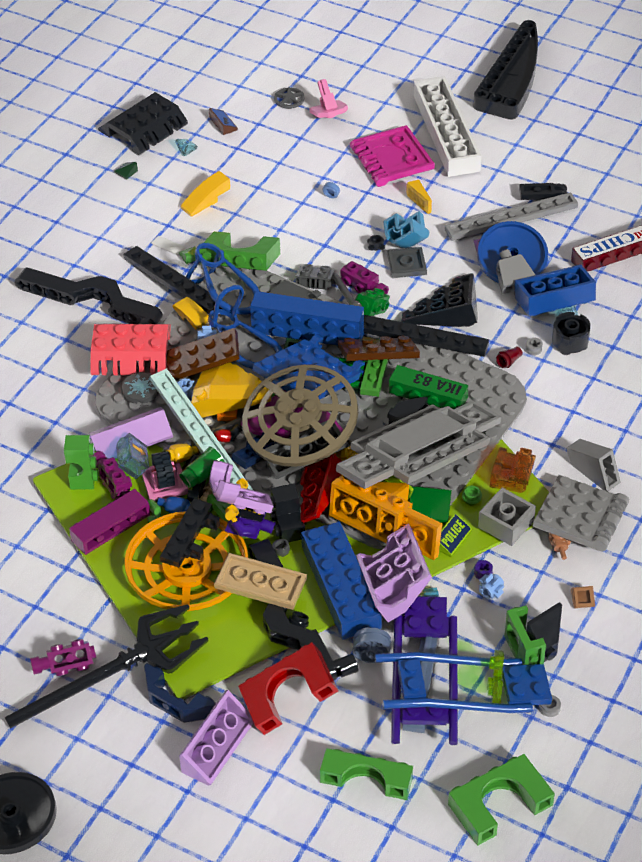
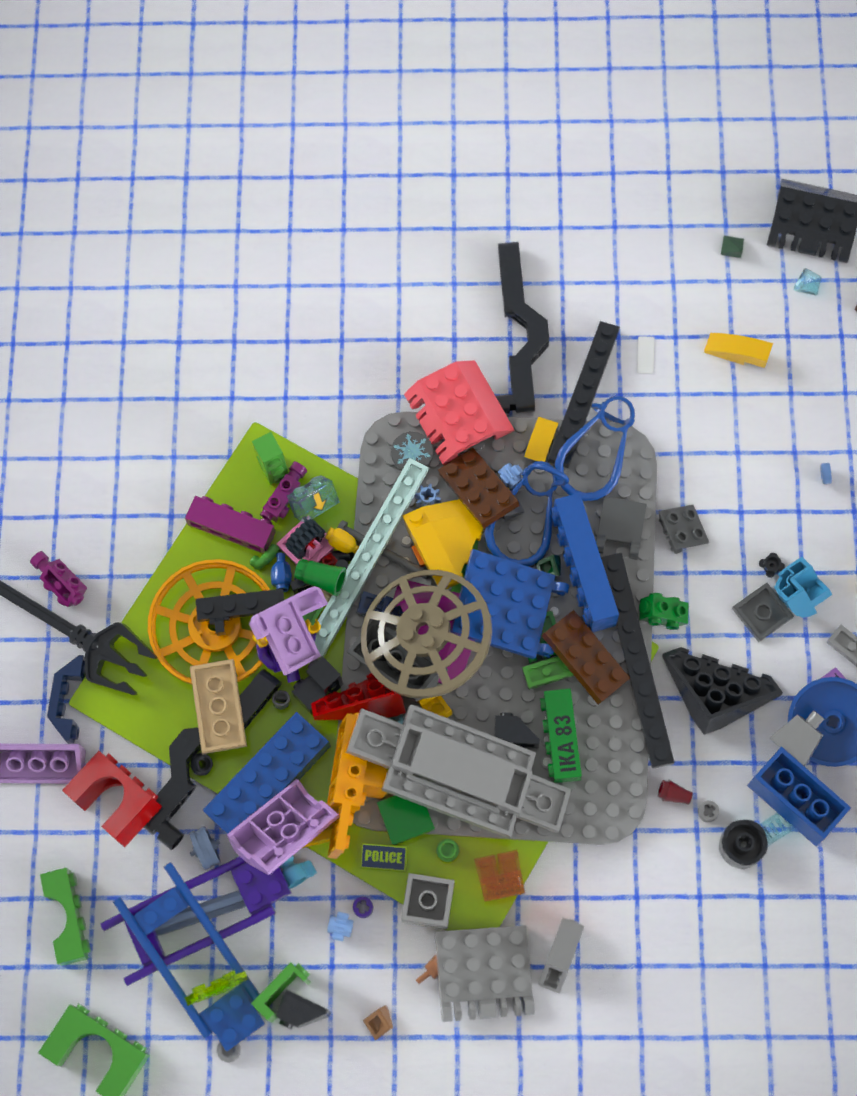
camera: 65 degrees right, 25 degrees up
(147, 427) = (352, 479): lavender slope -> none
(188, 255) = (642, 385): bright green slope -> none
(228, 435) = (391, 570): arm -> none
(255, 257) = (656, 458): bright green arch -> none
(345, 291) = (634, 600): dark grey bar -> none
(361, 278) = (703, 574): magenta brick -> none

